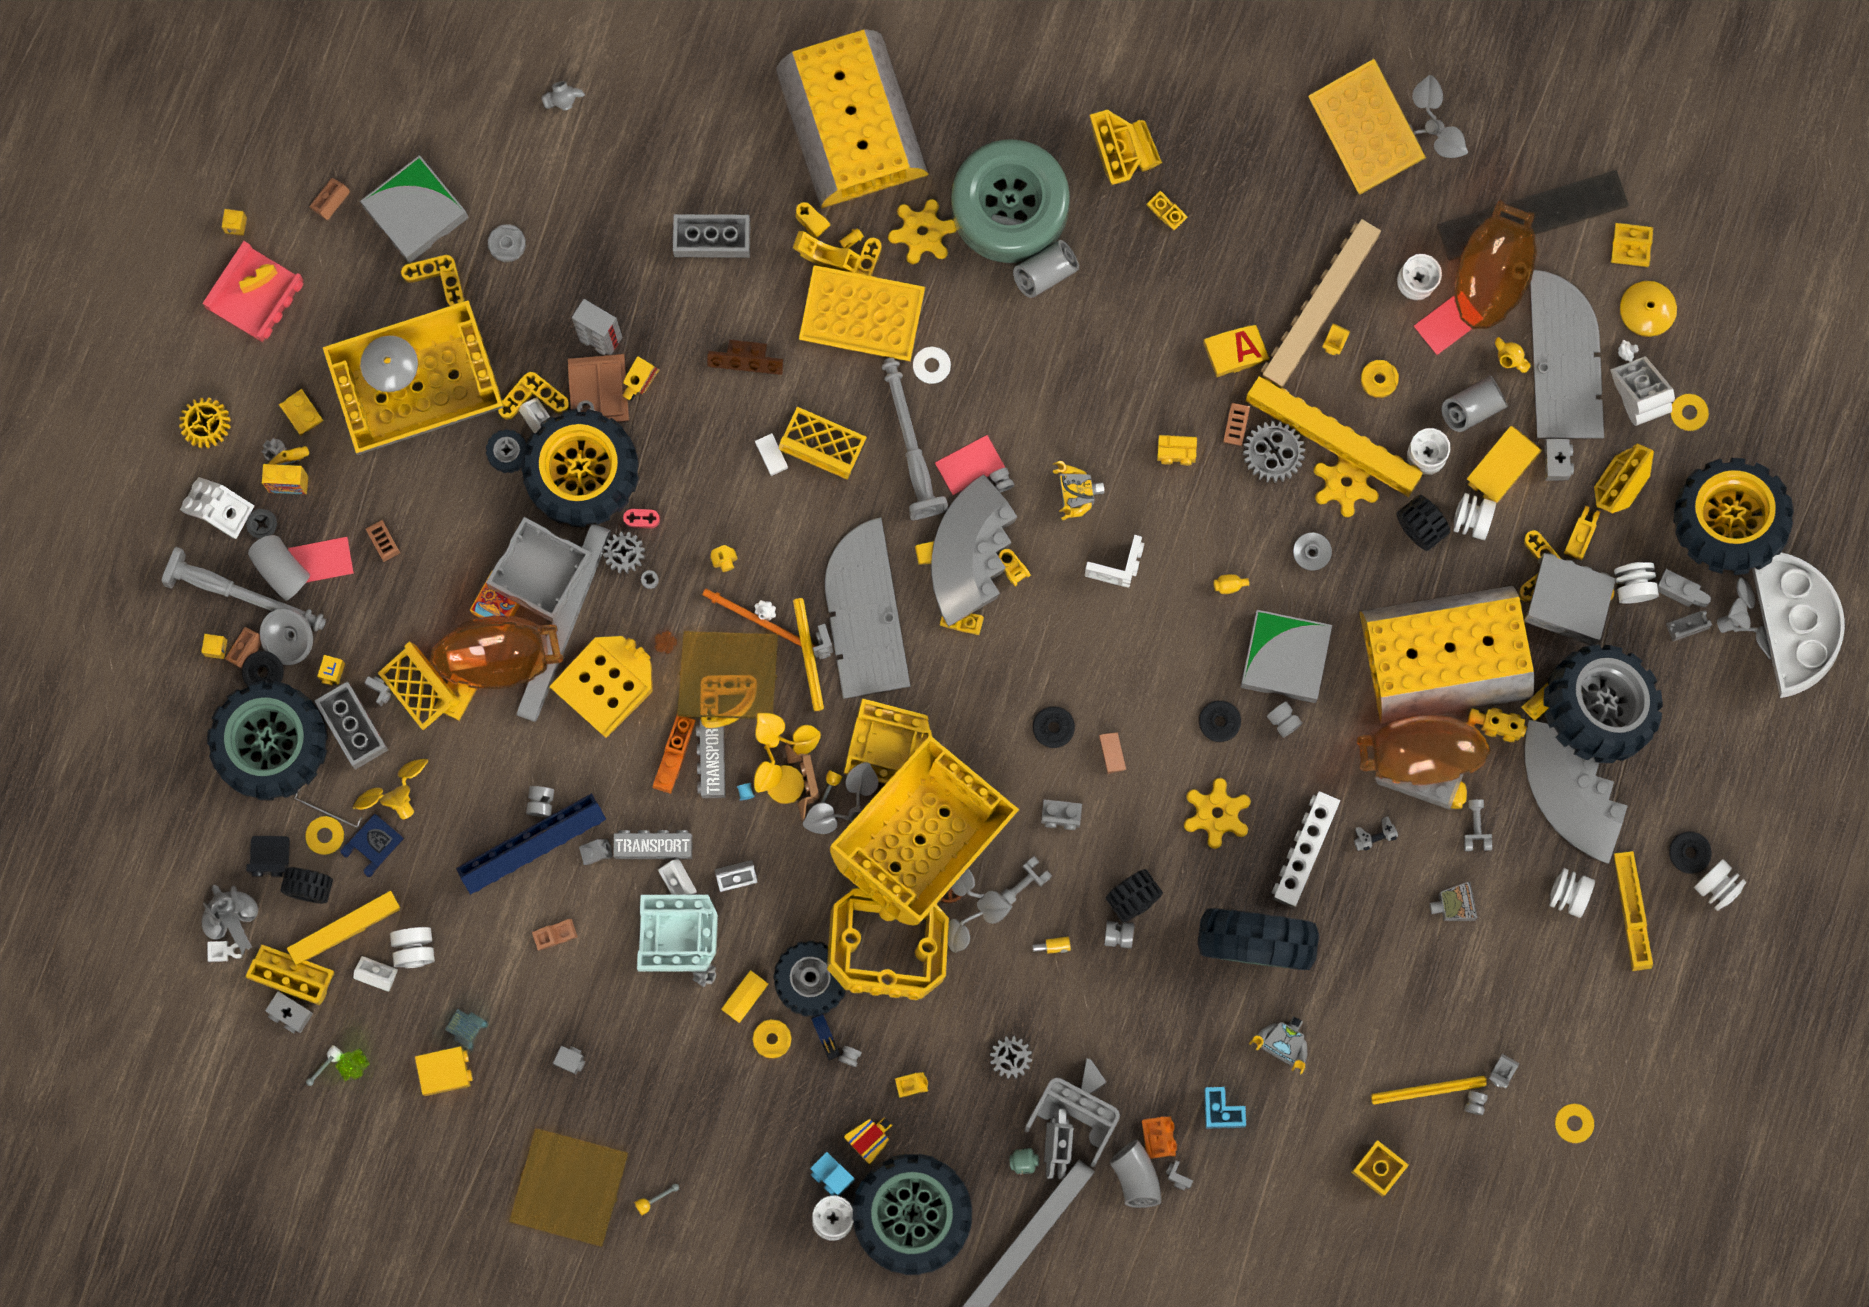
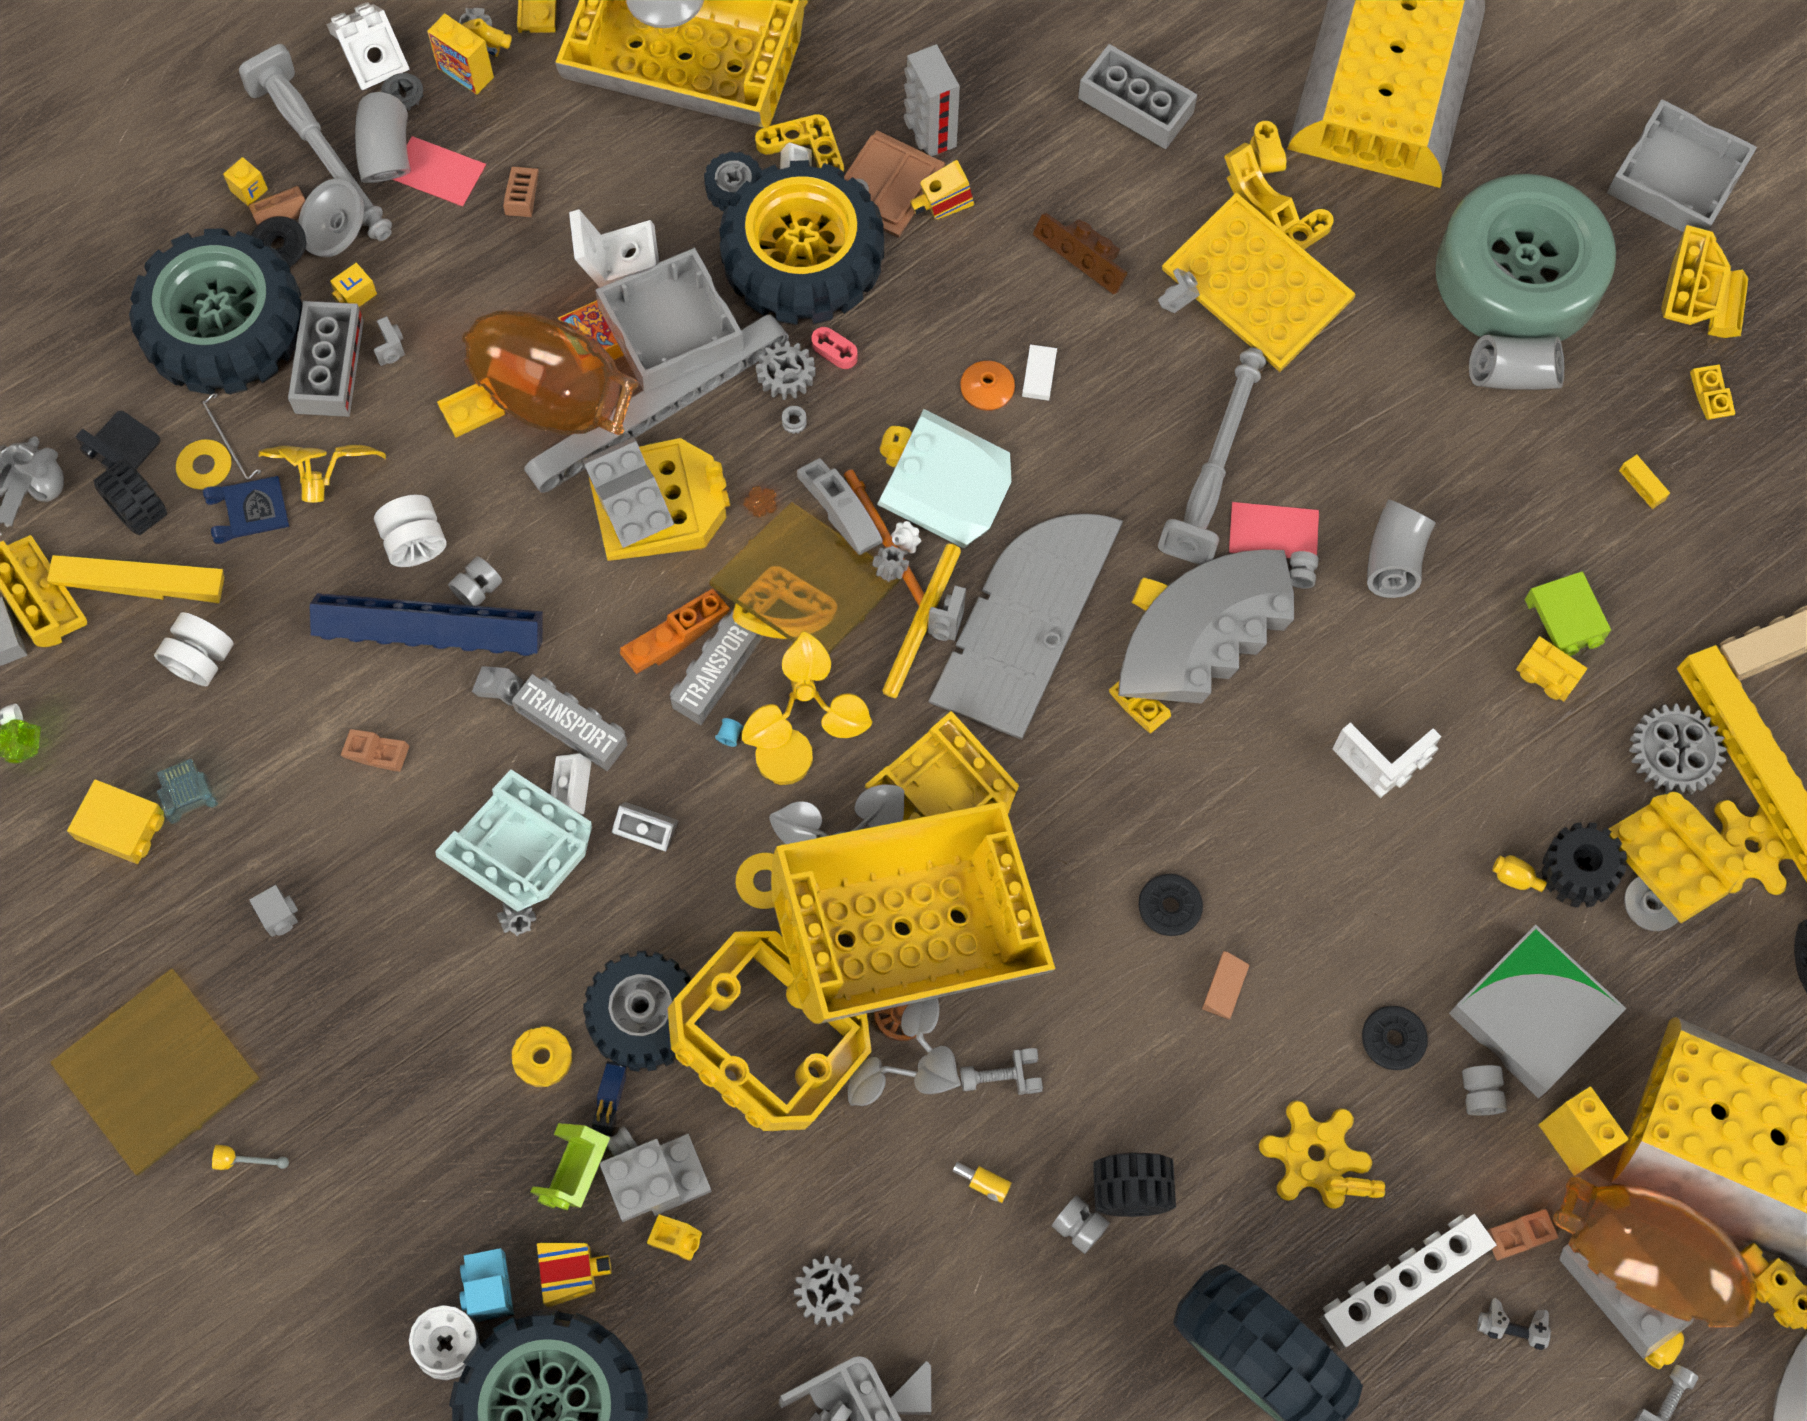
camera: 30 degrees right, 10 degrees down
(375, 973) = (133, 656): white slope -> none
(427, 672) = (459, 377): yellow fence -> none
(463, 548) = (605, 254): none -> white bracket
(476, 794) = (410, 530): none -> white wheel
(593, 692) = (628, 492): none -> light grey bracket
(714, 615) = (842, 505): none -> light grey slope
(744, 996) = (545, 978): yellow piece -> none
(748, 491) = (987, 395): none -> orange dish
(763, 632) = (890, 563): none -> light grey gear
(766, 559) = (948, 480): none -> light aqua wedge
(807, 770) = (813, 771): medium nougat piece -> none
(810, 863) = (745, 884): none -> yellow piece
(812, 455) = (1089, 400): yellow fence -> none
(823, 349) = (1181, 294): none -> light grey bracket
(832, 779) = (846, 787): yellow hinge -> none
(835, 1084) = (576, 1167): none -> lime panel
(851, 238) = (1303, 198): yellow pin -> none
(880, 1060) = (655, 1177): none -> light grey bracket
(921, 243) = (1380, 252): yellow plate -> none
(931, 377) = (1303, 375): white piece -> none
(1014, 567) = (1249, 682): yellow piece -> none
(1048, 433) = (1398, 551): none -> light grey brick
(1062, 814) = (1108, 1020): light grey bracket -> none
(1064, 73) = (1681, 169): none -> light grey tile
(1076, 490) = (1390, 637): torso -> none
(1160, 295) = (1644, 481): none -> yellow piece
(1167, 409) = (1570, 613): none -> lime panel
(1235, 350) = (1701, 599): yellow slope -> none
(1239, 408) = (1658, 672): nougat slope -> none
(1249, 817) = (1355, 1186): none -> yellow axle
(1259, 544) = (1592, 850): none -> black wheel
(1308, 516) = (1678, 855): none -> yellow plate
(1349, 708) = (1583, 1131): none -> yellow slope
(1350, 784) = (1522, 1234): none -> nougat slope

